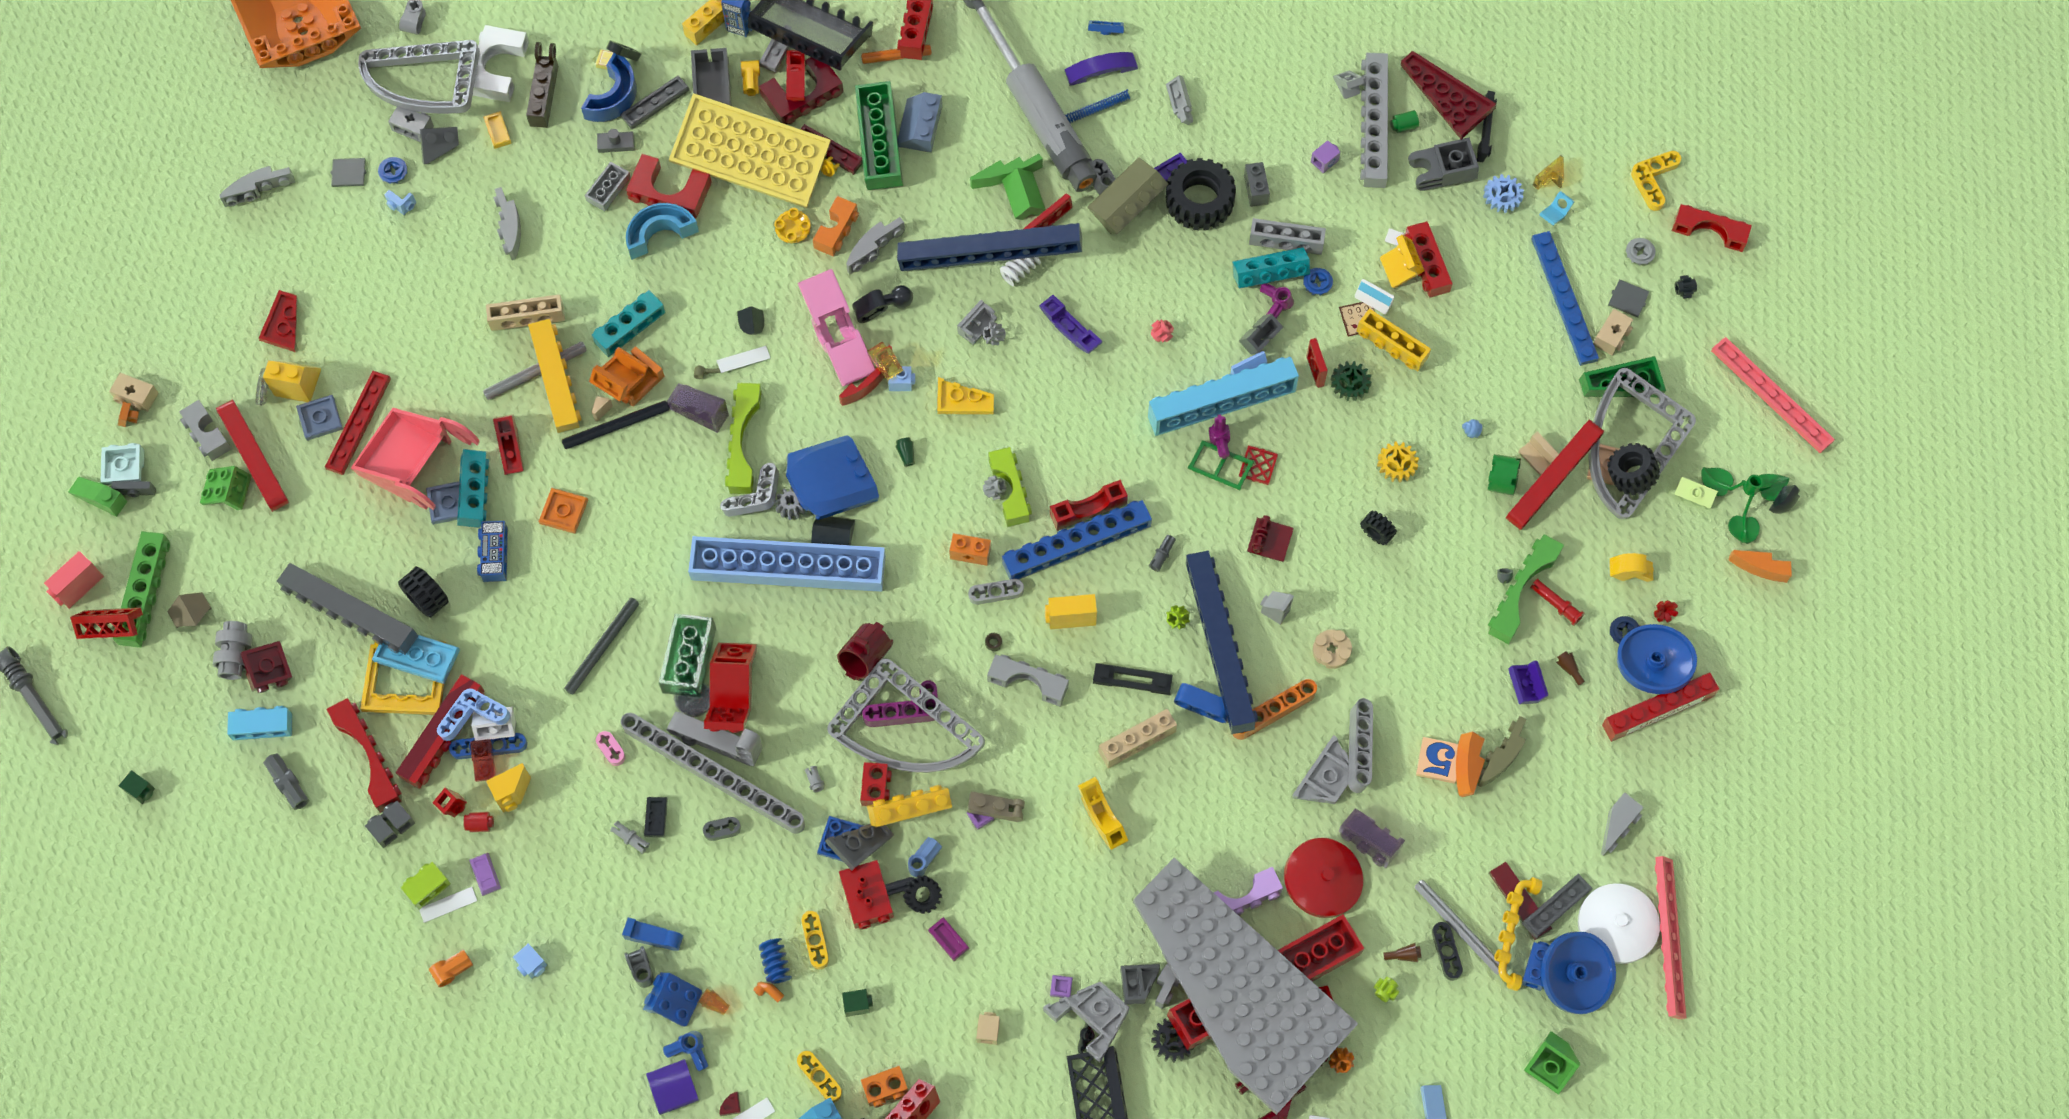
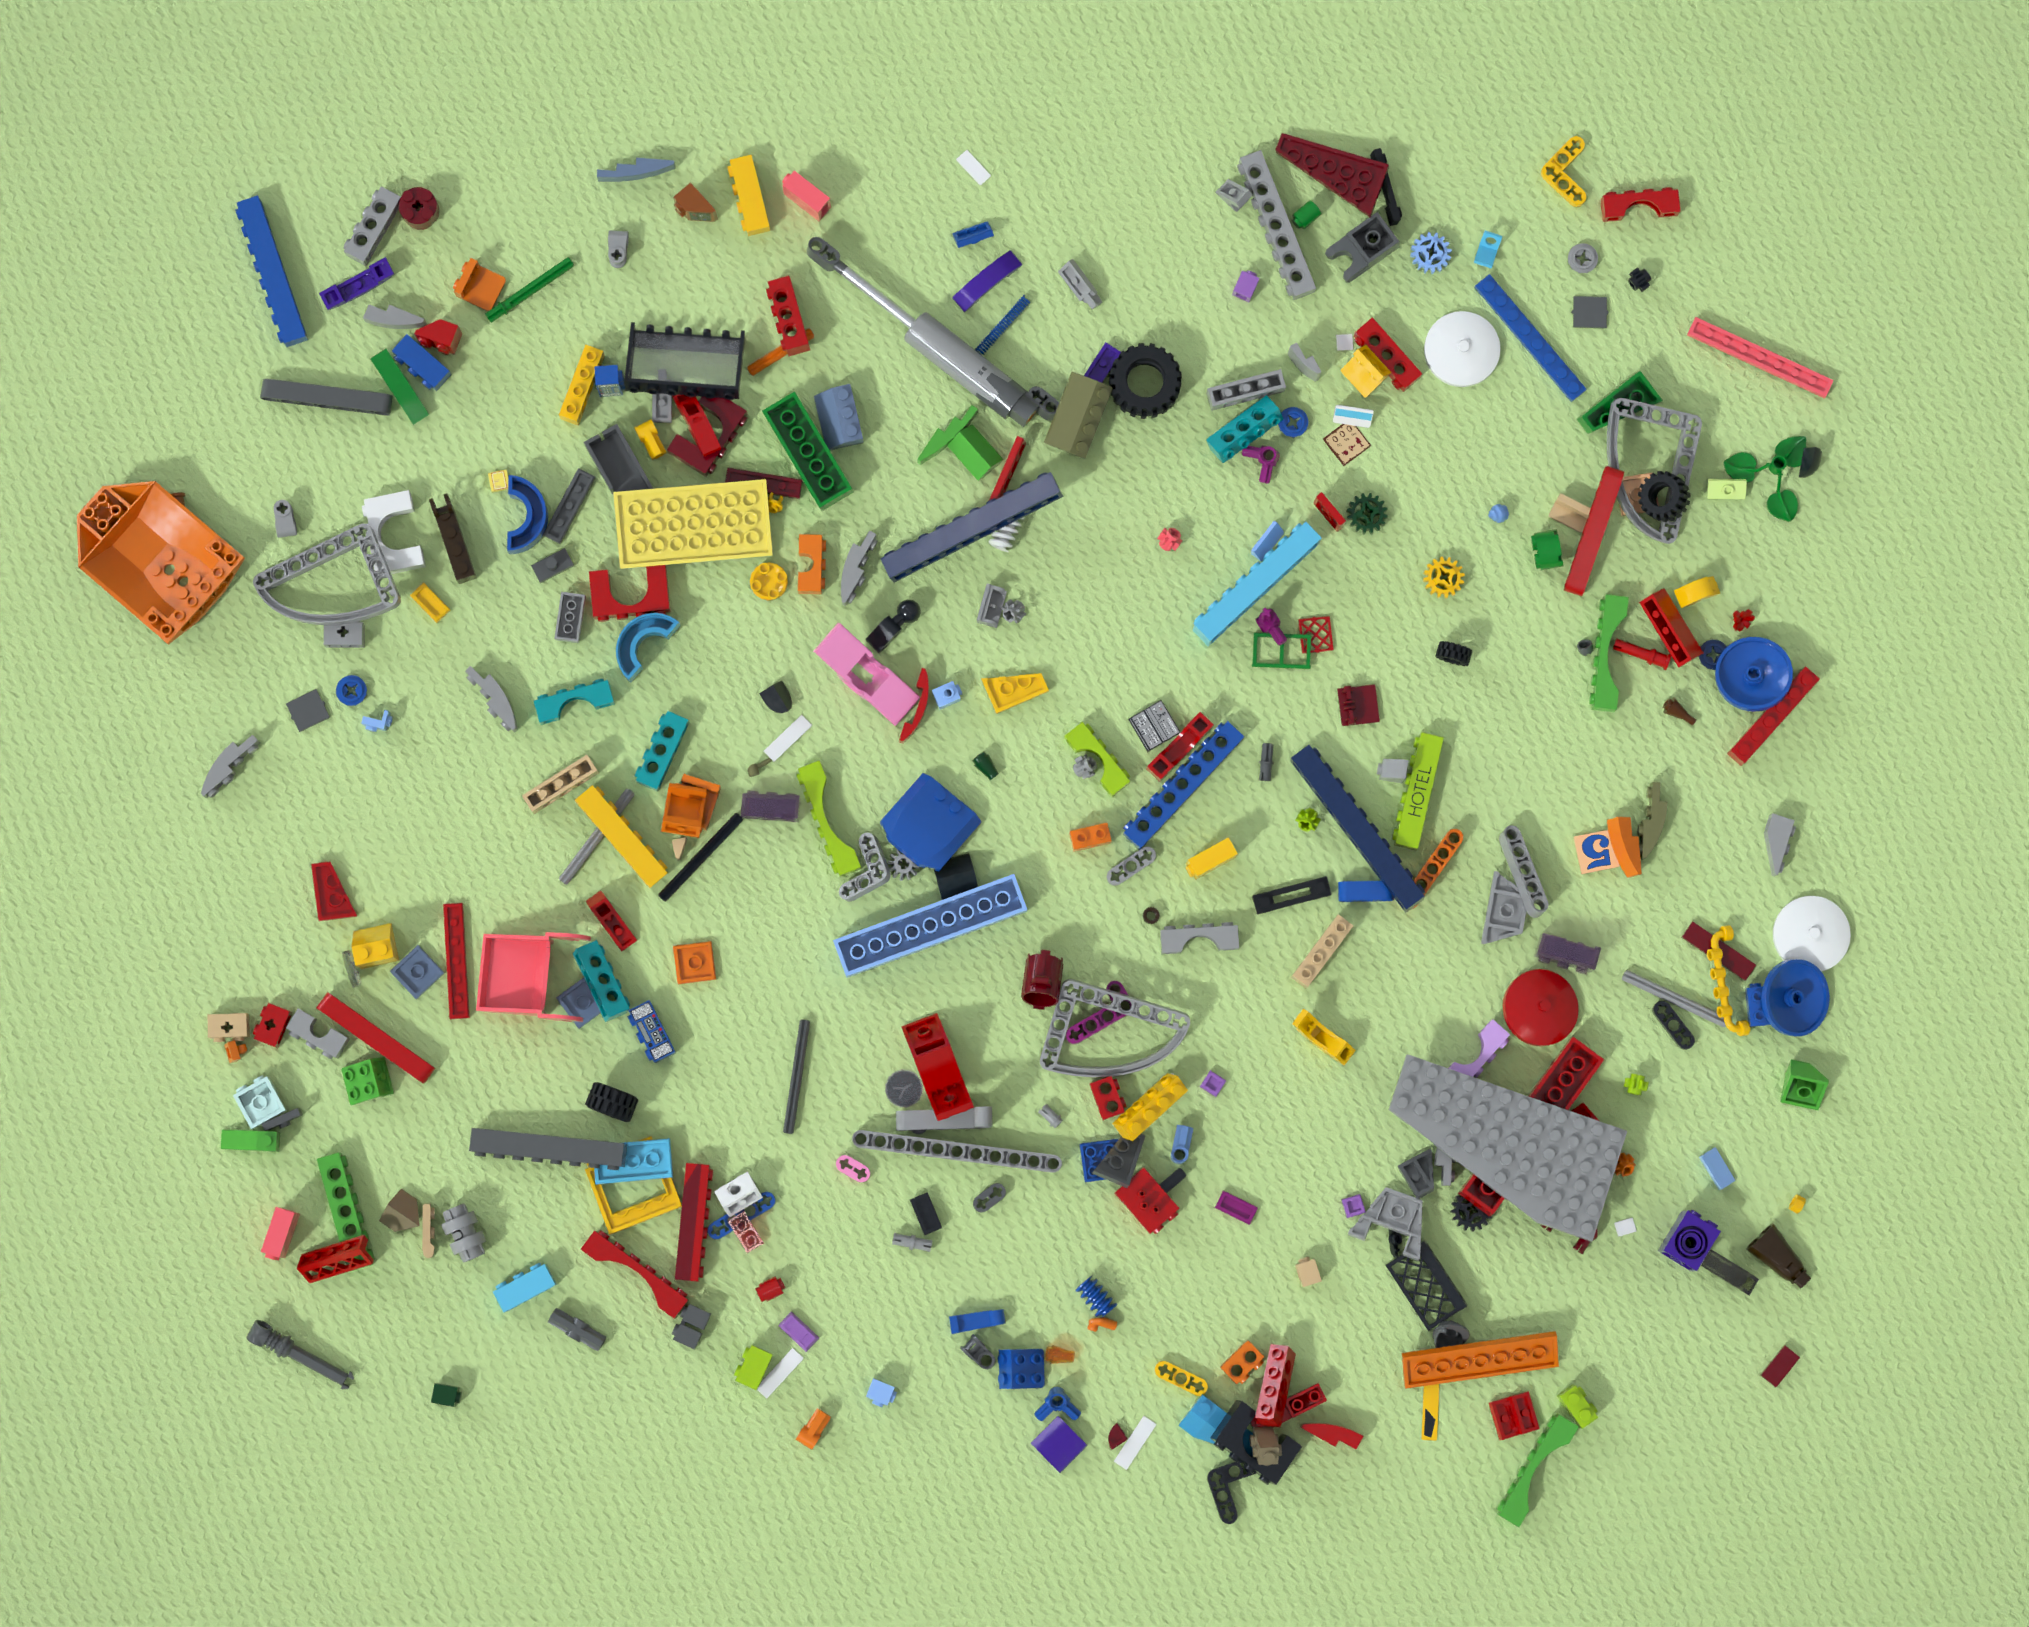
camera: 30 degrees left, 15 degrees up
(167, 415) = (274, 1035): none -> red brick
(203, 636) = (428, 1231): none -> tan hinge
(266, 667) = (504, 1235): dark red plate -> none
(437, 142) = (381, 643): dark grey wing -> none
(455, 804) = (739, 1286): red brick -> none
(468, 708) = (711, 1192): light blue beam -> none
(510, 787) = (784, 1248): yellow slope -> none
(552, 250) = (550, 707): none -> teal arch
(623, 50) = (517, 470): black beam -> none
(687, 655) = (883, 1054): clear green brick -> none
(806, 927) = (1112, 1260): yellow beam -> none
(857, 1002) = (1184, 1300): dark green brick -> none
(885, 360) = (927, 687): clear yellow slope -> none
(910, 894) = (1205, 1184): black tyre -> none
(995, 806) = (1223, 1070): dark tan plate -> none
(1069, 326) = (1081, 571): dark purple slope -> none
(1074, 480) = (1154, 726): none -> light grey tile
(1256, 184) = (1193, 345): dark grey brick -> none
(1264, 329) = (1264, 494): dark grey piece -> none
(1292, 635) = (1418, 791): none -> lime brick
(1327, 658) = (1458, 798): tan plate -> none
(1349, 234) = (1306, 366): none -> light grey slope
(1393, 340) = (1390, 456): yellow brick -> none
(1407, 953) = (1640, 1043): reddish brown cone -> none
(1498, 282) = (1462, 349): none -> white dish
(1528, 683) = (1647, 744): dark purple bracket -> none
(1552, 172) = (1470, 208): clear yellow slope -> none
(1556, 905) = (1752, 942): dark grey tile -> none
(1594, 588) = (1671, 627): none -> red brick
(1617, 323) = (1585, 366): tan brick -> none
(1670, 938) = (1861, 928): coral plate -> none
(1762, 565) = (1813, 536): orange slope -> none

